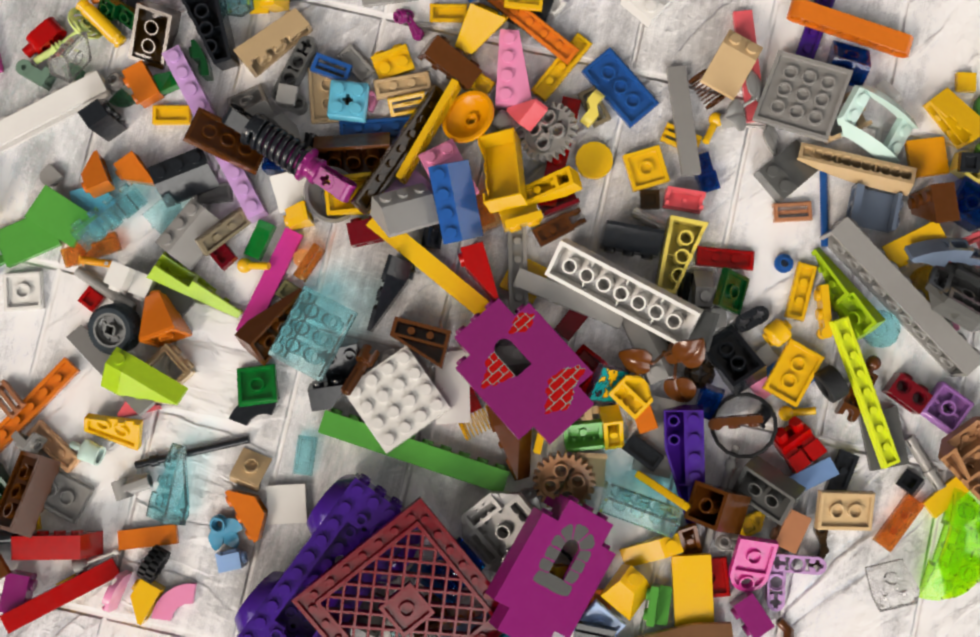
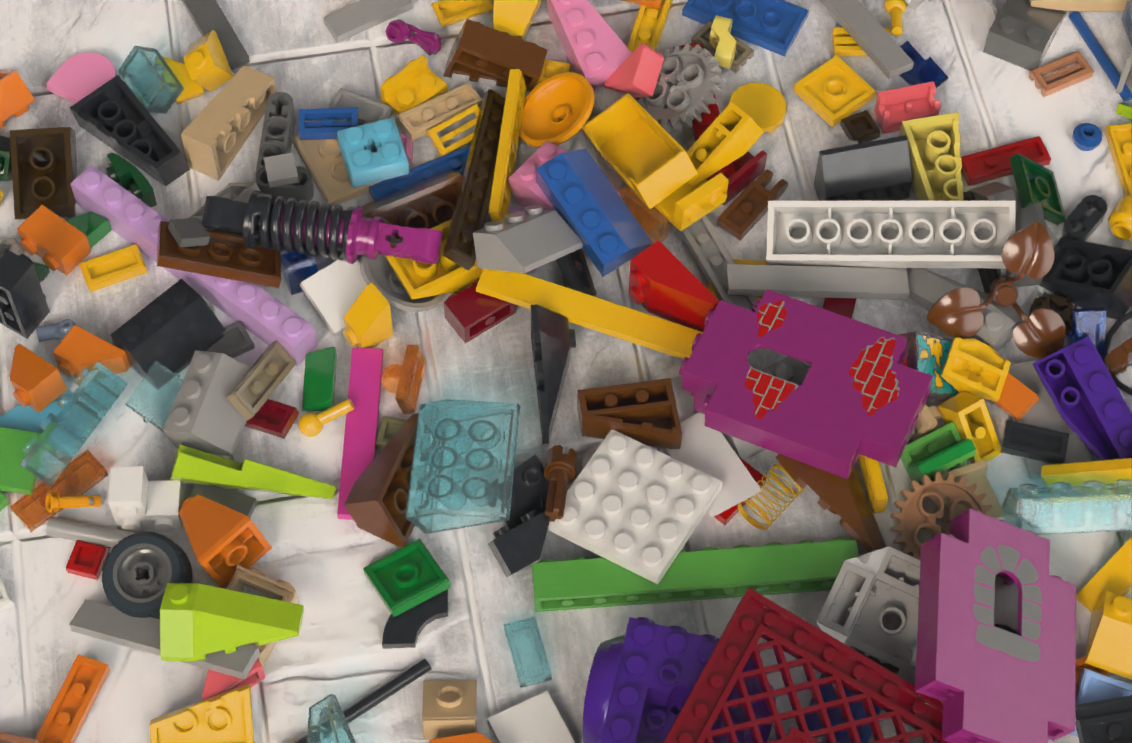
camera: 25 degrees left, 25 degrees down
(125, 145) = (55, 330): none -> sand blue arm
(210, 123) = (189, 232): none -> dark grey tile
(582, 442) = (940, 457): none -> green tile

